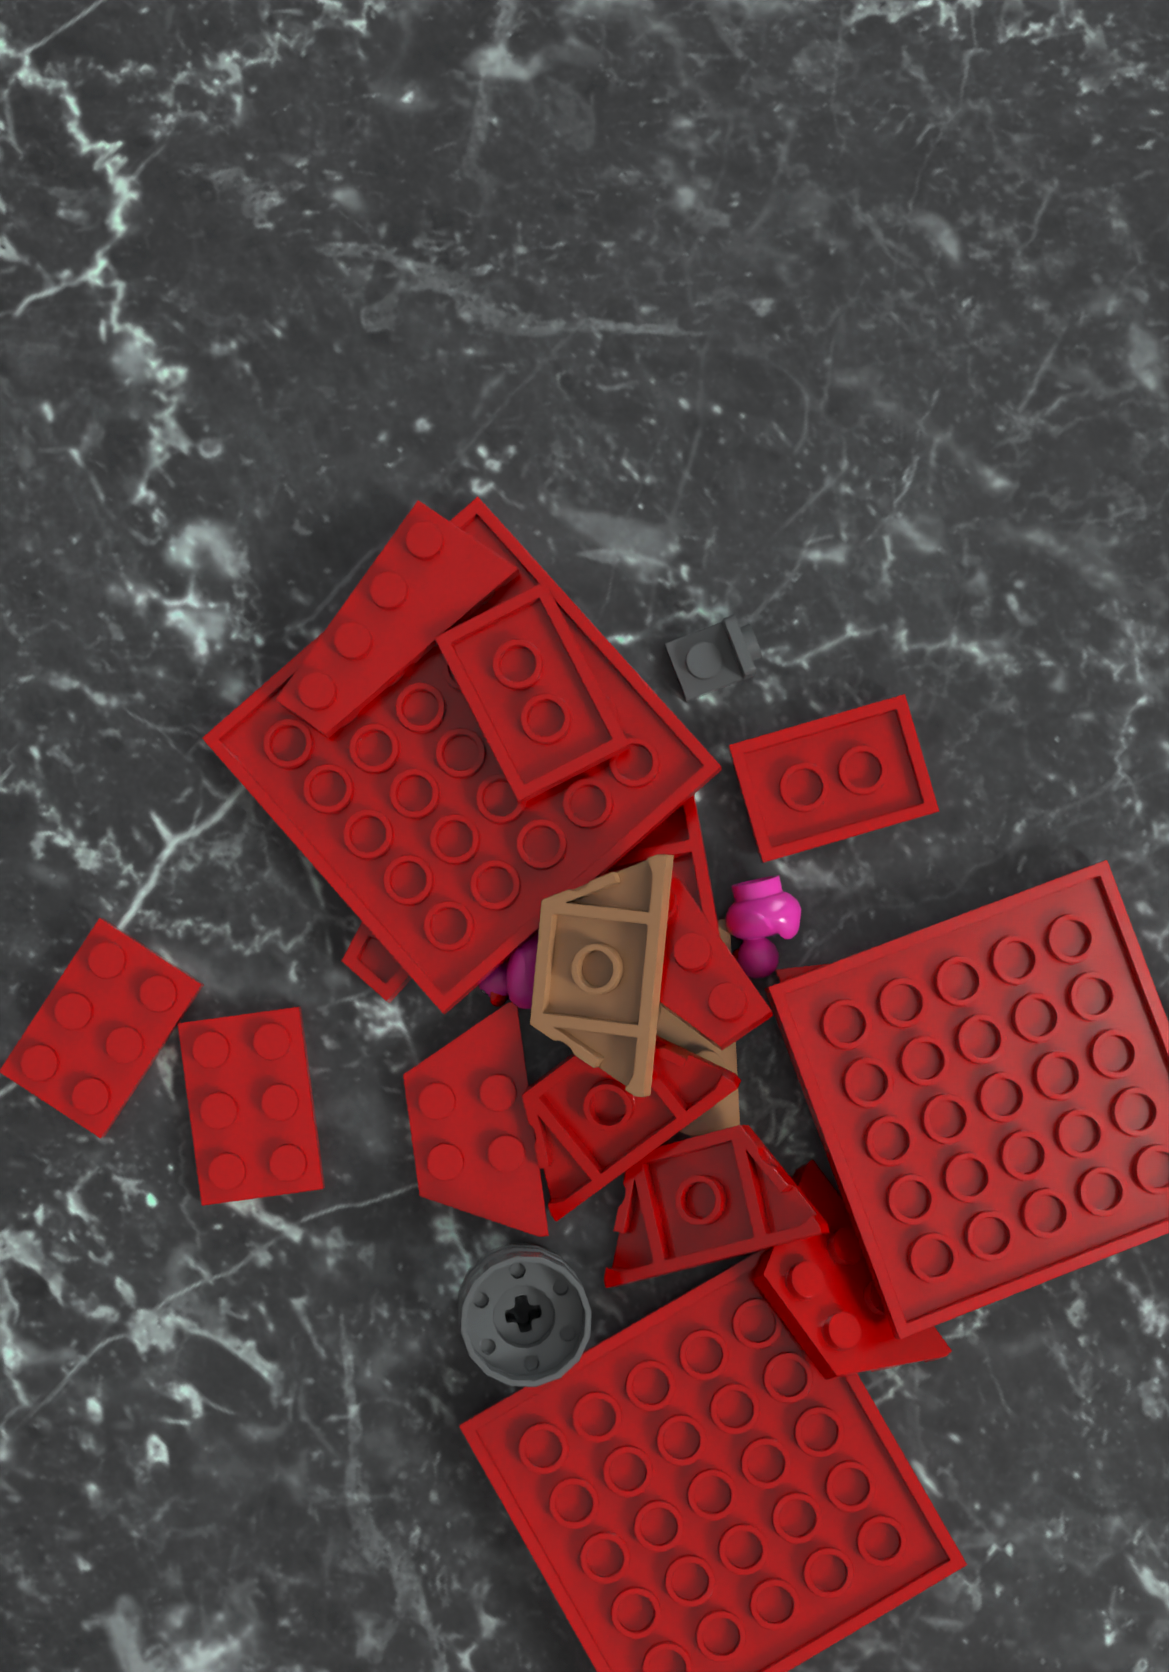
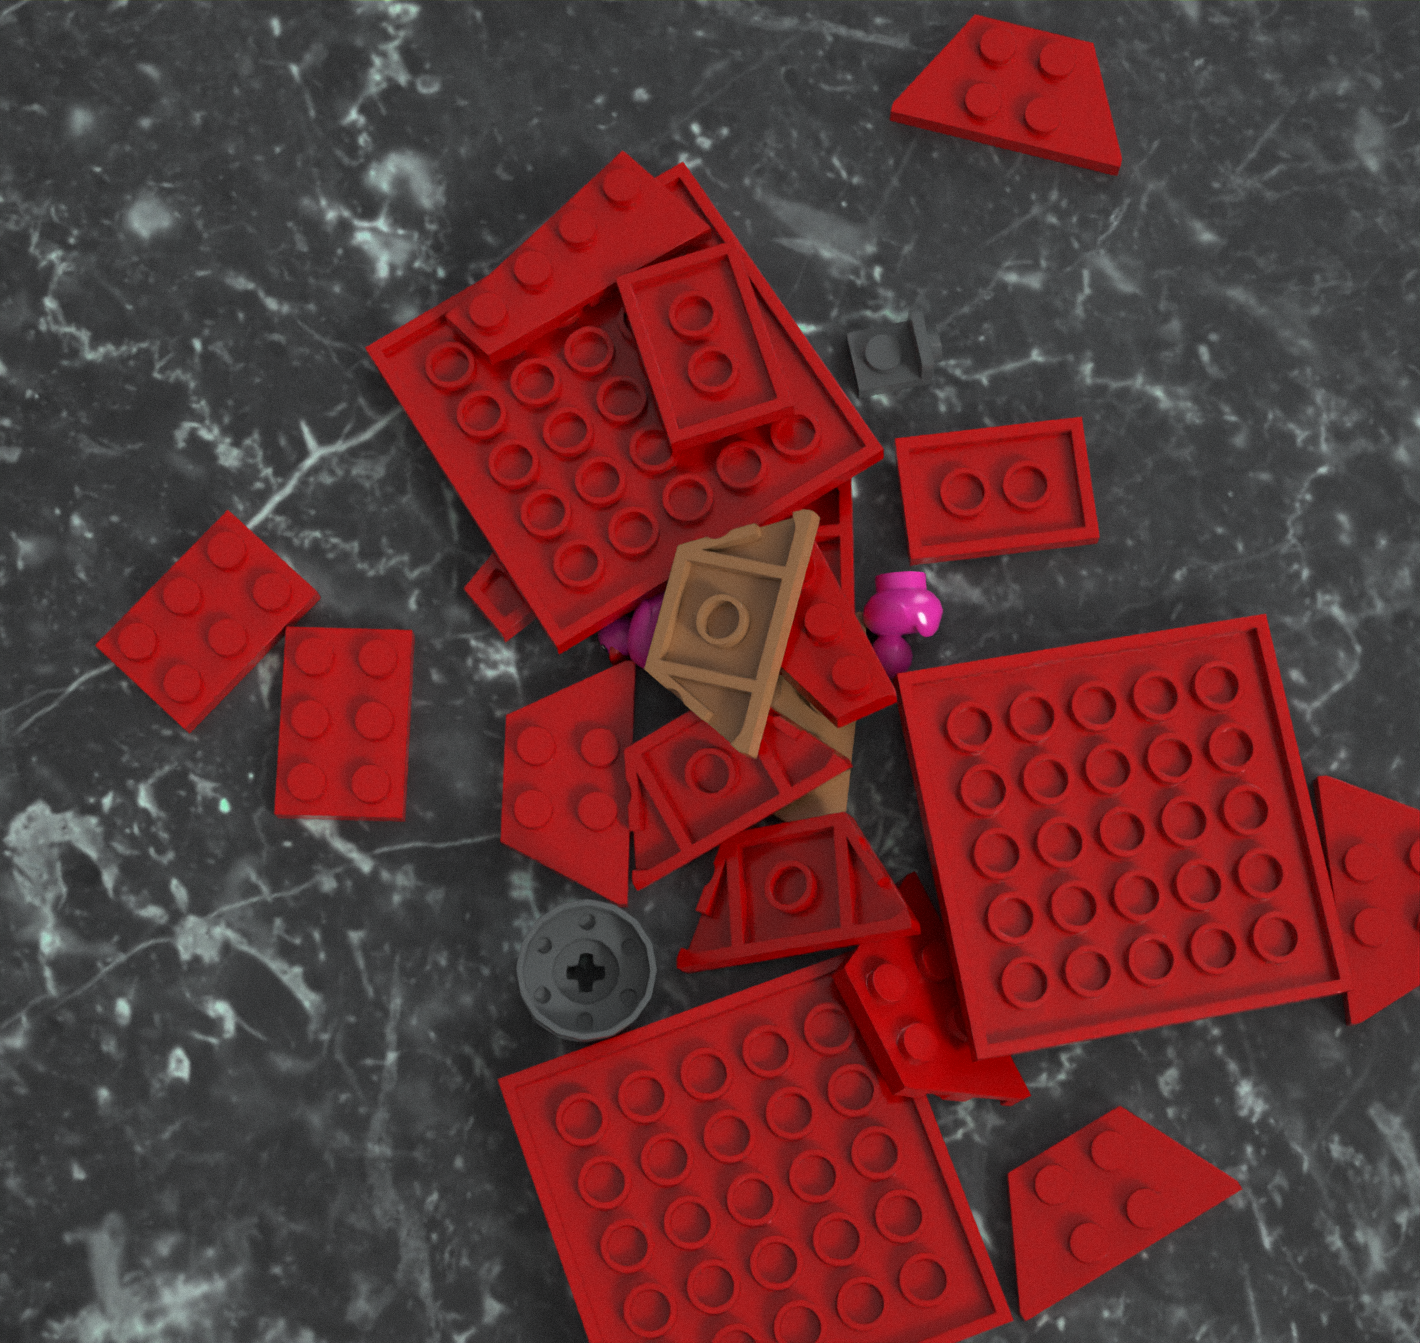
camera: 10 degrees right, 10 degrees down
(793, 367) = (1017, 94): none -> red wing
(1029, 1437) = (1101, 1203): none -> red wing

